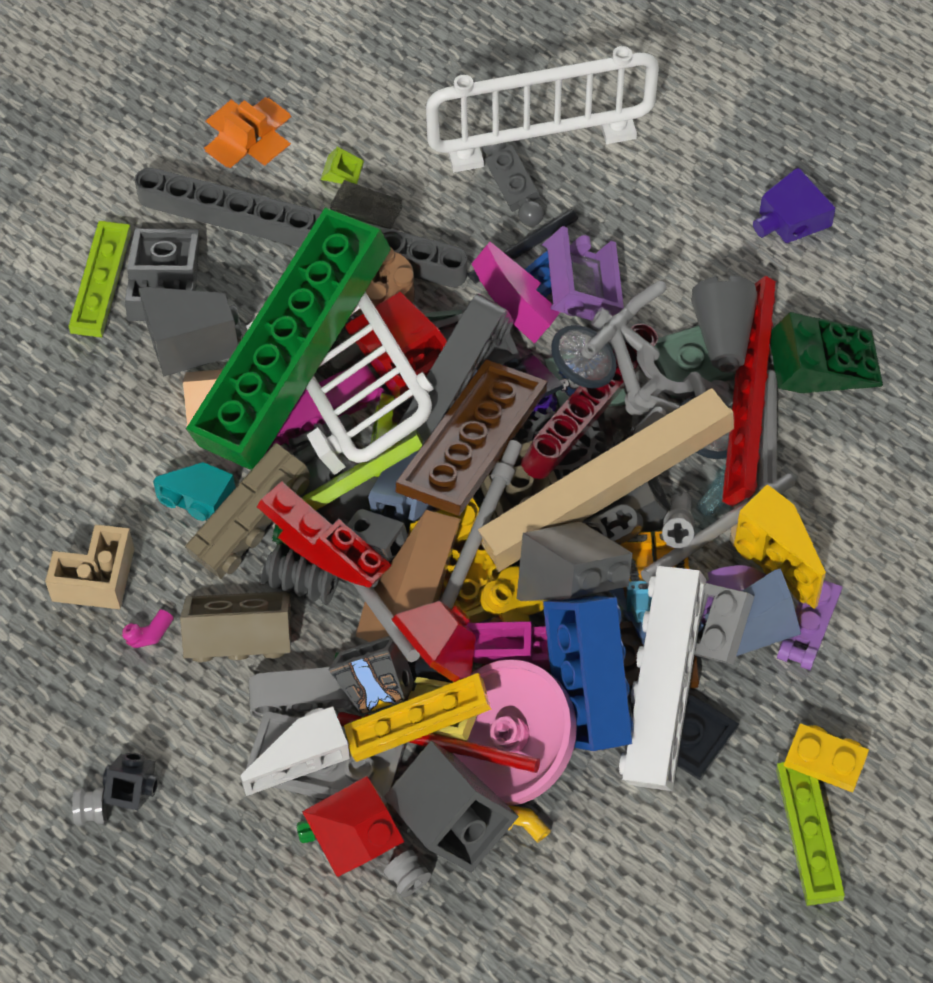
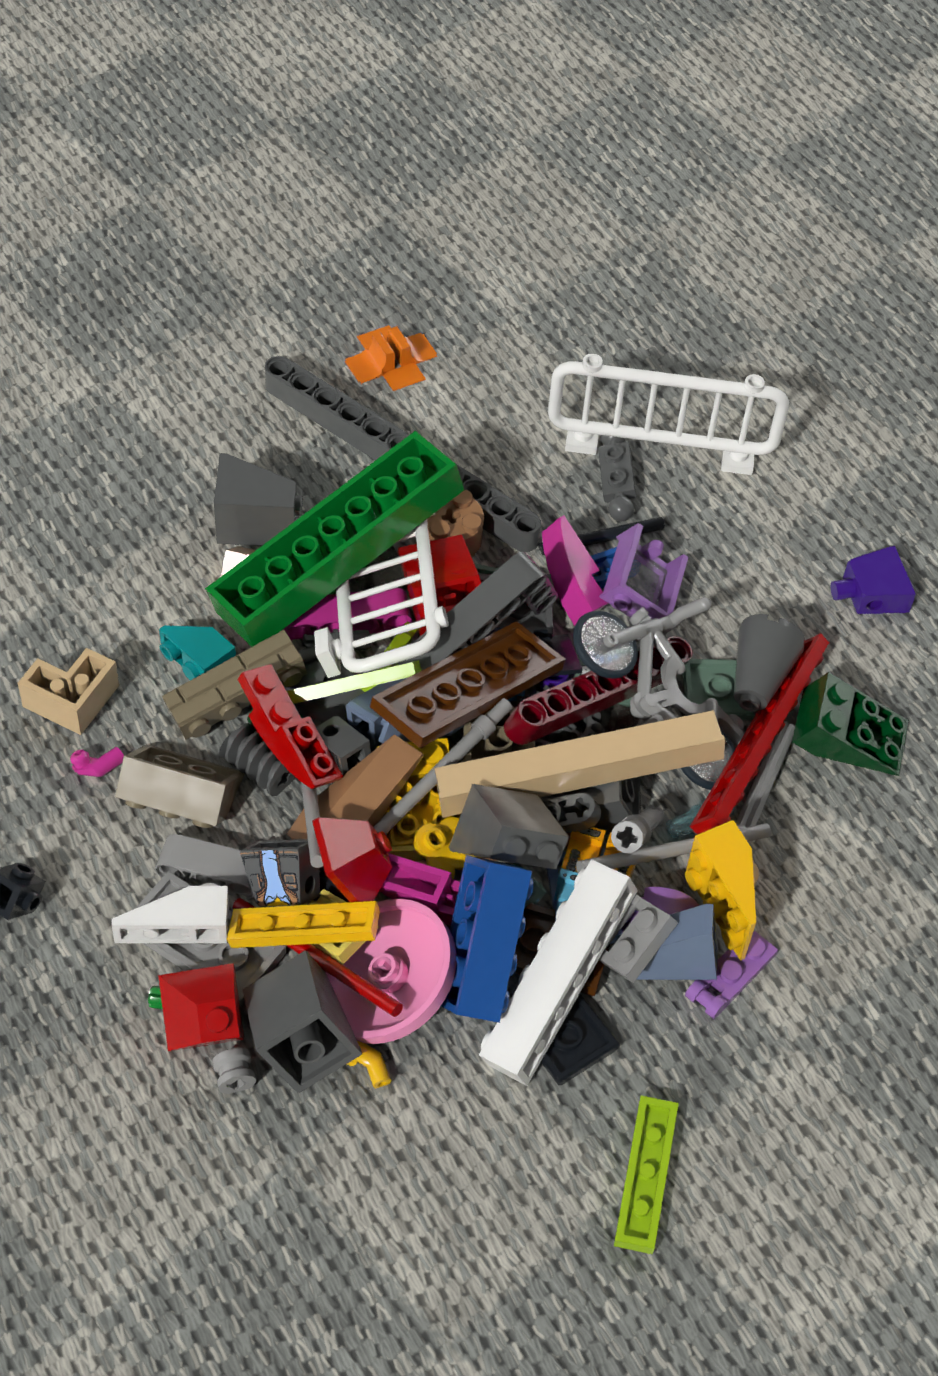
camera: 15 degrees right, 5 degrees down
(100, 279) = (197, 440): lime plate -> none
(160, 261) = (260, 440): dark grey slope -> none
(342, 166) = (463, 414): lime slope -> none
(366, 205) = (470, 452): clear smoke plate -> none
(826, 757) = (692, 1106): yellow bracket -> none

